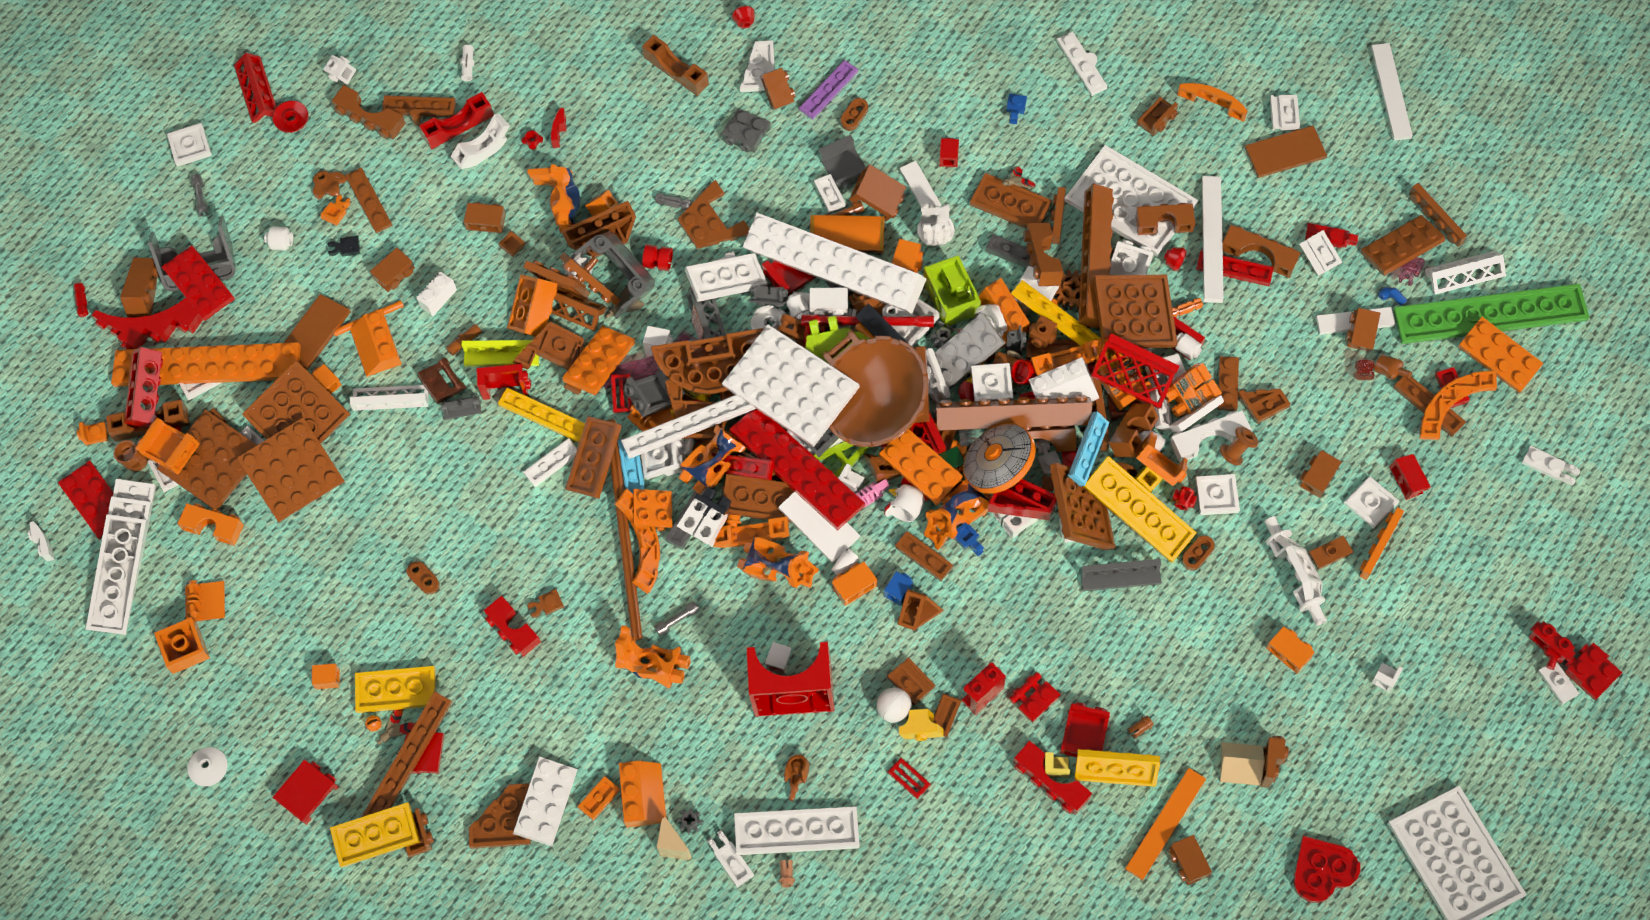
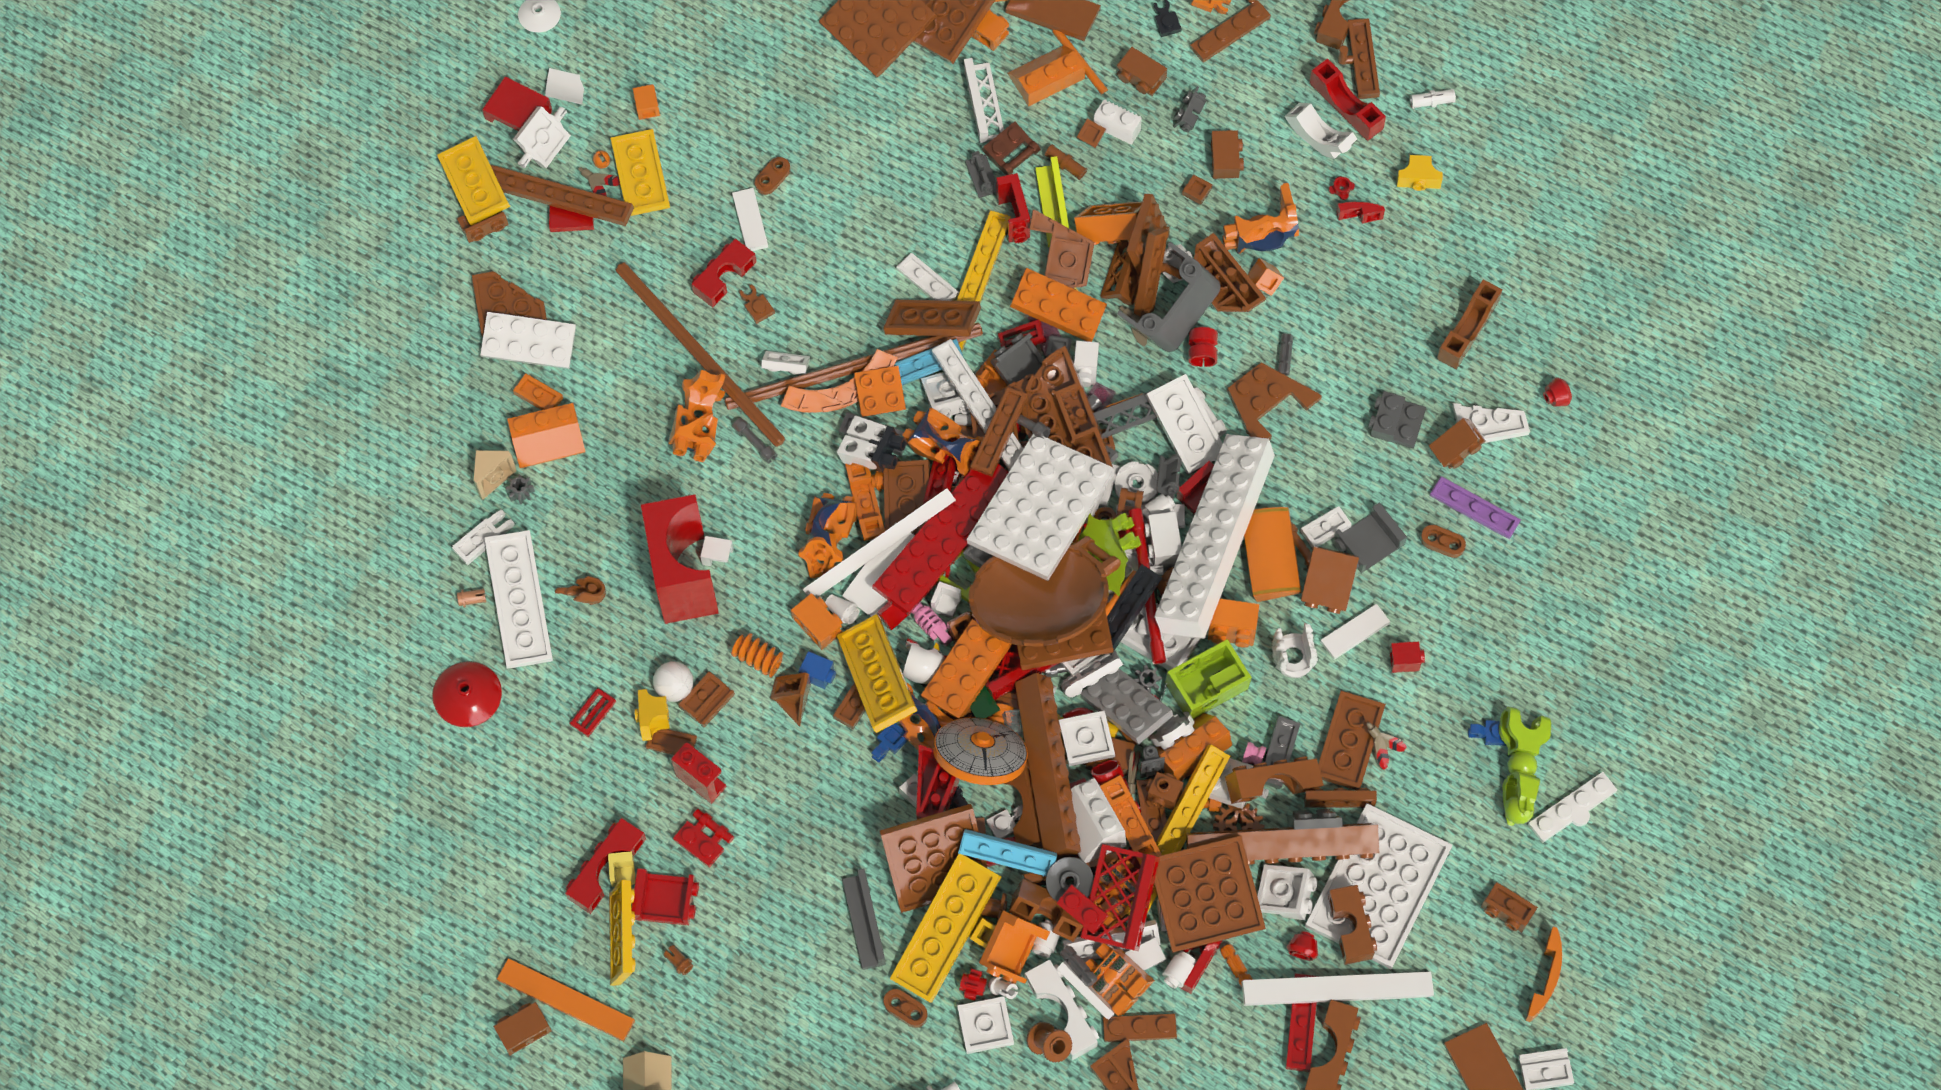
camera: 80 degrees right, 0 degrees up
(292, 748) = (564, 86): none -> white sticker
(342, 770) = (541, 137): none -> white plate
(430, 237) = (1192, 102): none -> dark grey hinge
(441, 316) = (1091, 133): none -> dark orange plate
(462, 601) = (750, 219): none -> white tile
(534, 80) = (1420, 174): none -> yellow brick
(584, 655) = (700, 354): none -> dark orange axle
(608, 584) = (785, 362): none -> white plate
(639, 364) = (1056, 343): none -> dark grey tile
(716, 410) = (999, 431): none -> dark orange tile
(721, 377) = (1038, 429): none -> flat silver bar
(798, 522) = (880, 544): none -> white sticker
(857, 524) = (891, 615): none -> red tile
(876, 900) = (467, 707): none -> red dish
(877, 632) = (757, 655): none -> orange piece
(916, 533) = (876, 673): none -> yellow plate
(1015, 270) = (1254, 754): none -> bright pink wheel
(1031, 84) = (1523, 745): none -> lime piece
(1081, 229) = (1322, 819): none -> dark grey plate
(1120, 402) = (1069, 867): none -> dark grey dish
(1140, 400) = (1082, 909): none -> red plate
(1180, 415) = (1078, 966): none -> flat silver axle
(1192, 473) = (999, 986): none -> white pin

